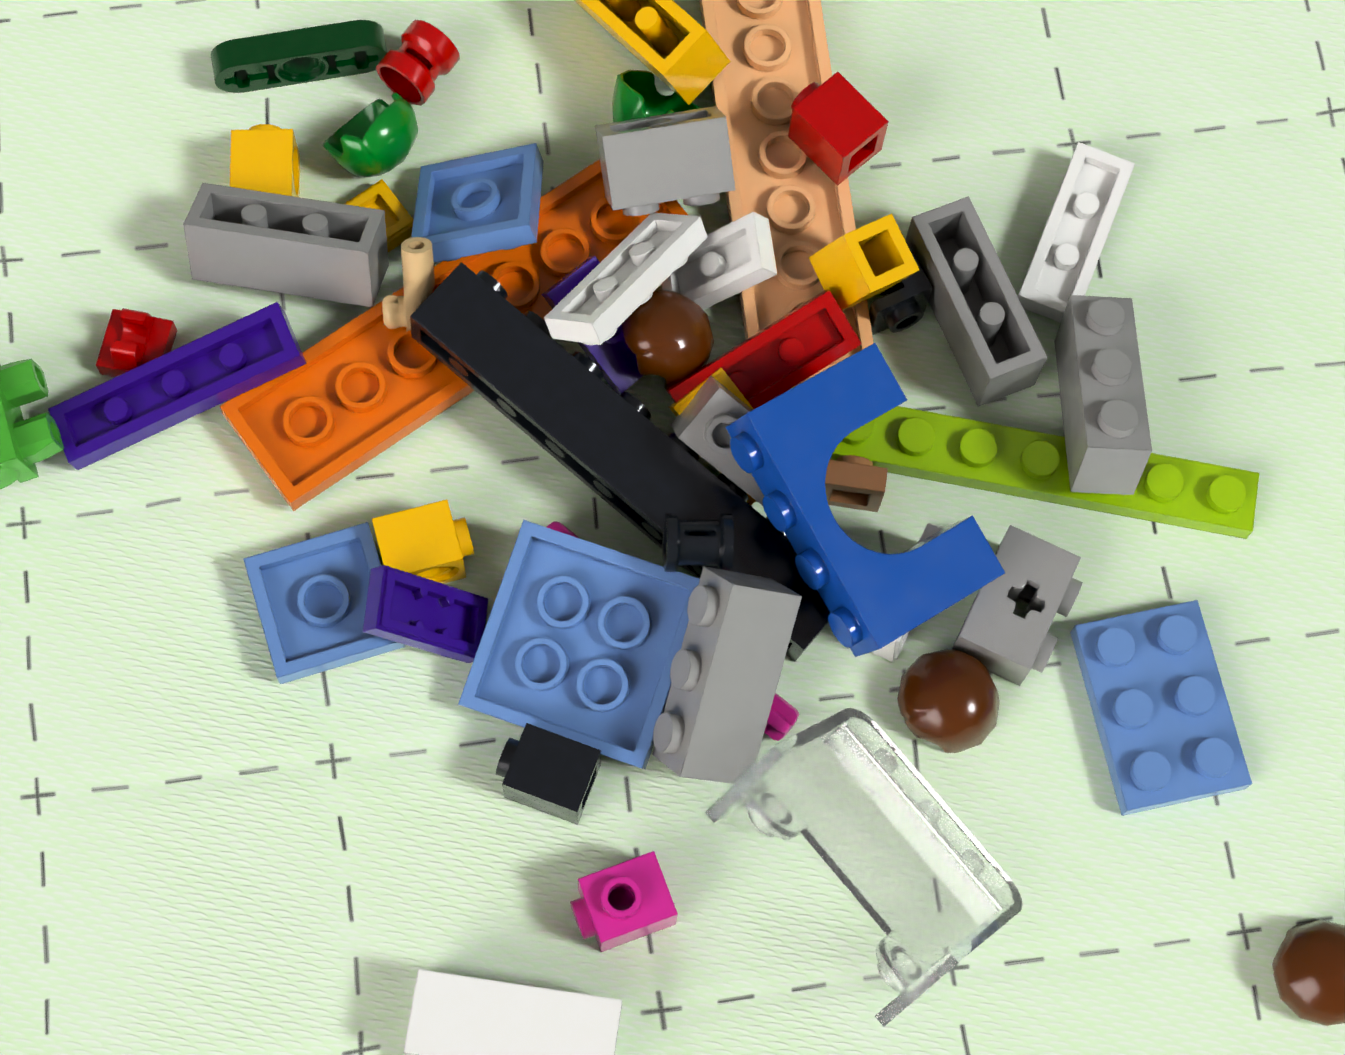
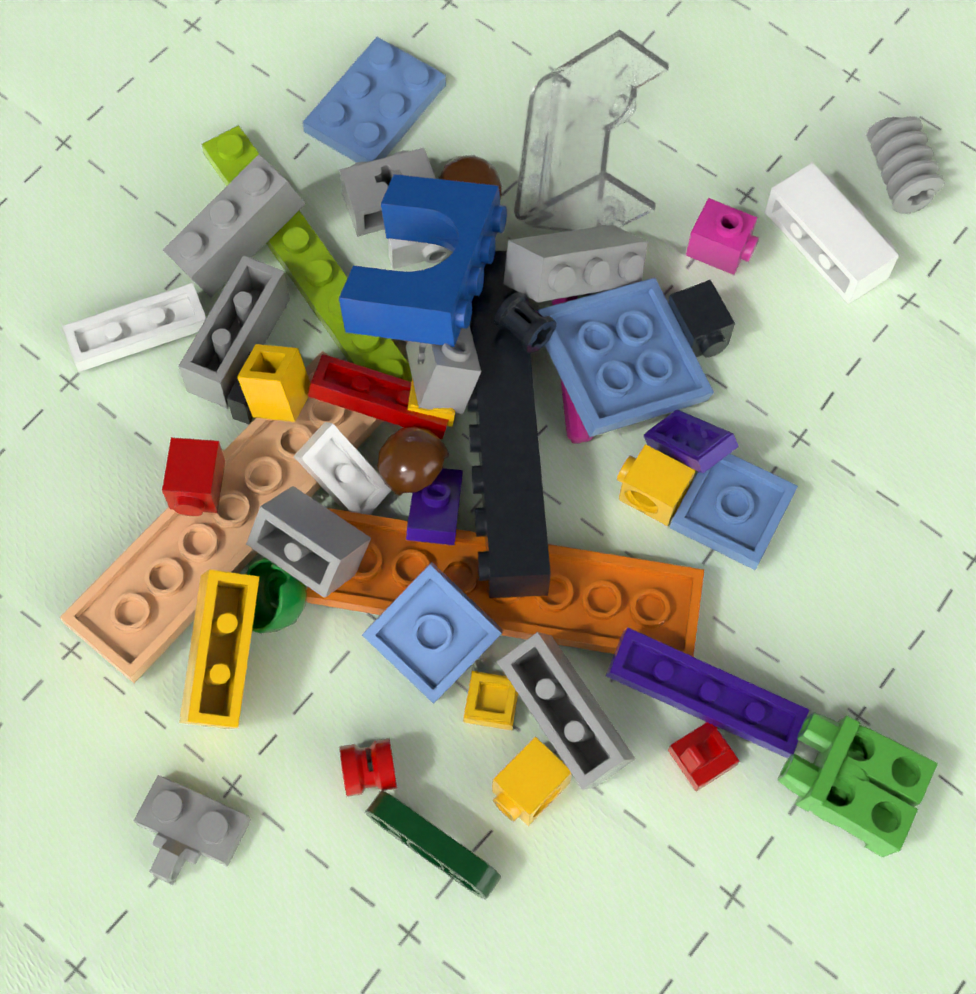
camera: 130 degrees left, 5 degrees down
(375, 138) = (444, 743): green hair -> none
(417, 283) = (524, 610): tan arm -> none
(625, 278) = (408, 489): white plate -> none

